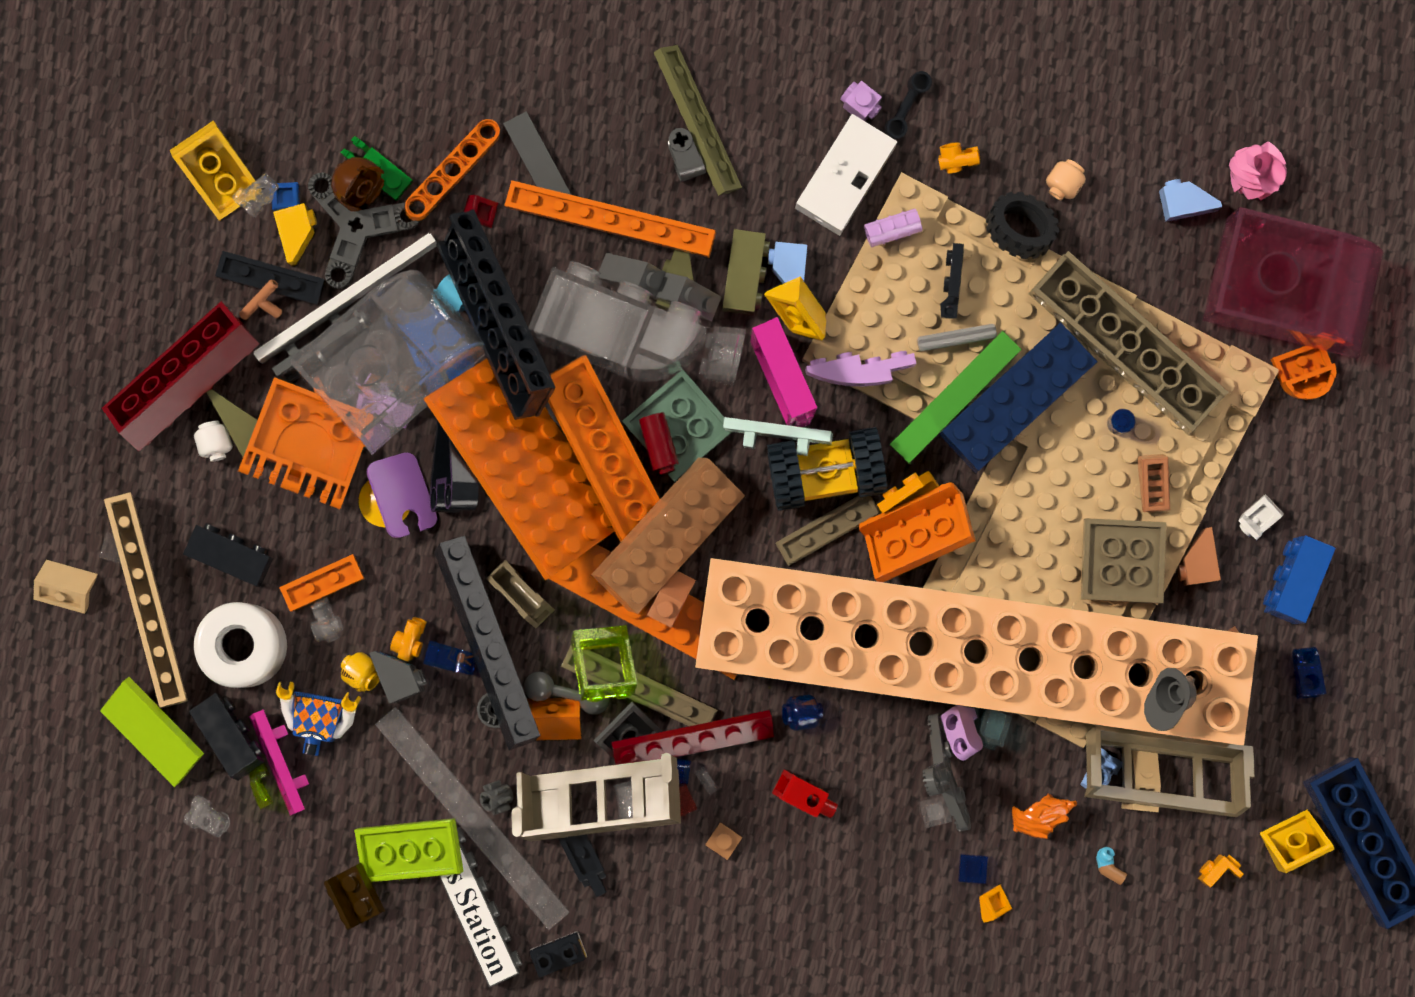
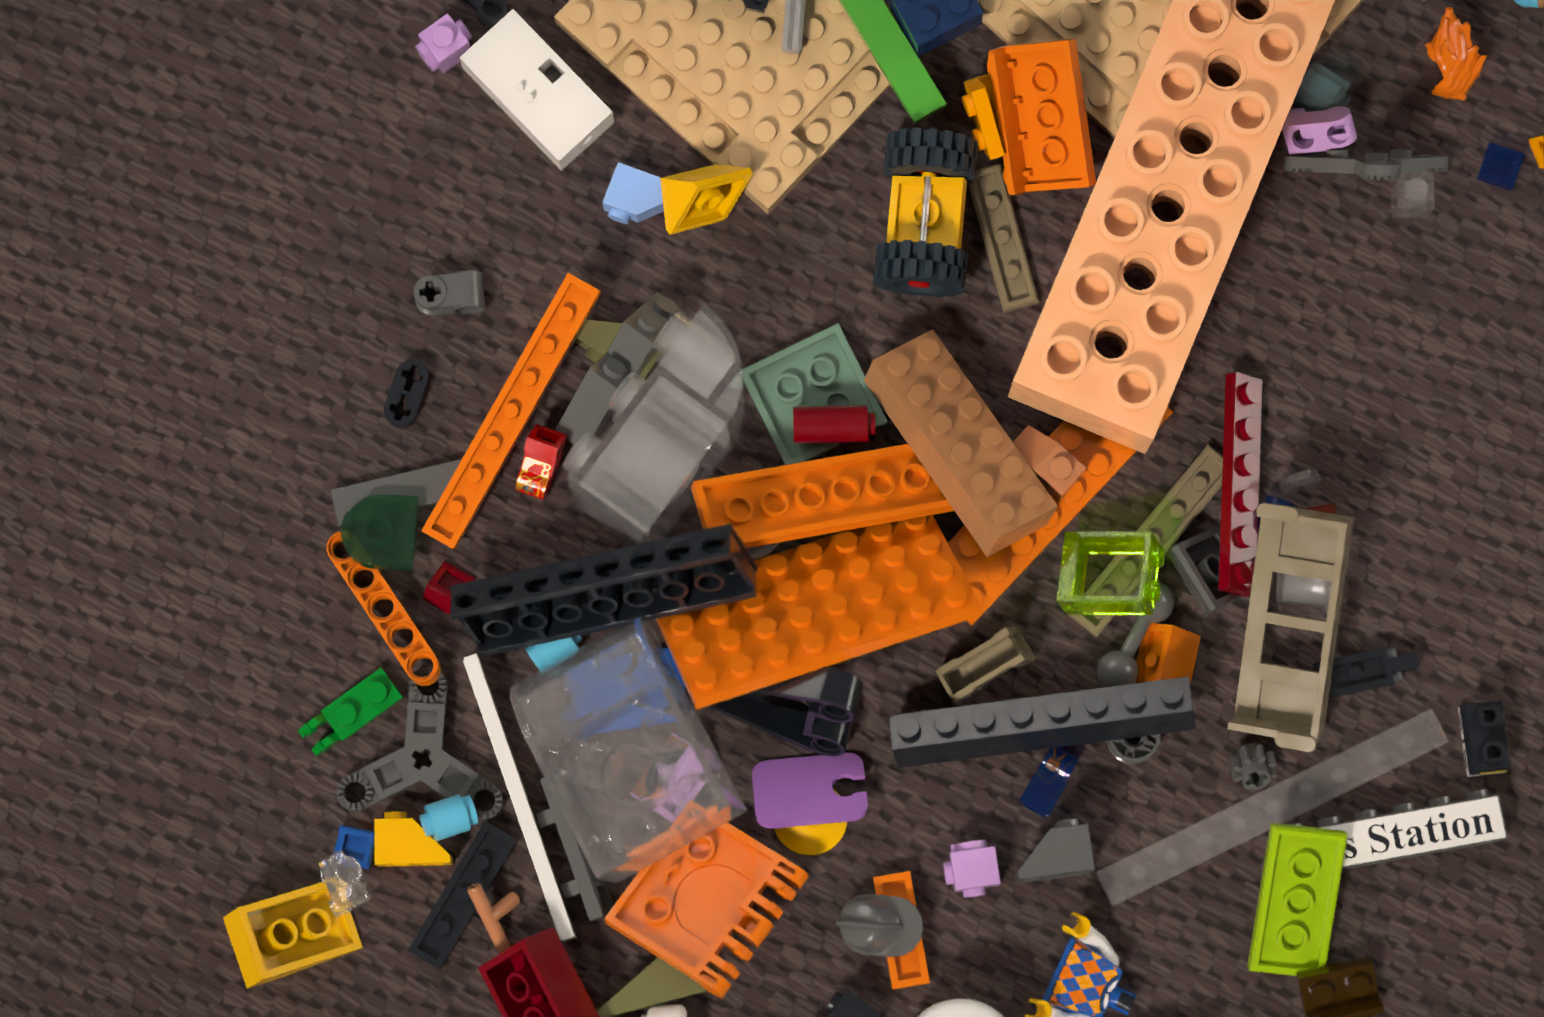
camera: 70 degrees left, 5 degrees down
(317, 252) = (448, 817): none -> medium azure brick
(320, 567) = (880, 925): none -> dark grey piece
(327, 625) = (962, 938): clear plate -> none
(357, 182) = (365, 739): reddish brown cylinder -> none
(359, 672) = (1036, 907): yellow head -> none
(376, 620) = (972, 868): none -> lavender brick
(407, 642) = (1014, 834): light orange plate -> none
(504, 154) = (382, 532): none -> clear green tile
(581, 248) = (540, 461): none -> red leg
(608, 138) = (415, 396): none -> black beam
(697, 120) = (406, 265): olive plate -> none
(723, 841) = (1384, 481): medium nougat plate -> none
(724, 355) = (741, 306): clear slope -> none
(745, 272) = (630, 255): olive brick -> none
(754, 428) = (846, 295): light aqua hinge -> none
(783, 373) = (789, 230): dark pink window -> none
(796, 791) = (1350, 358): red torso -> none
(802, 712) = (1239, 333): clear blue head -> none
(849, 371) = (804, 145): lavender slope -> none
(893, 227) = (628, 42): lavender axle -> none

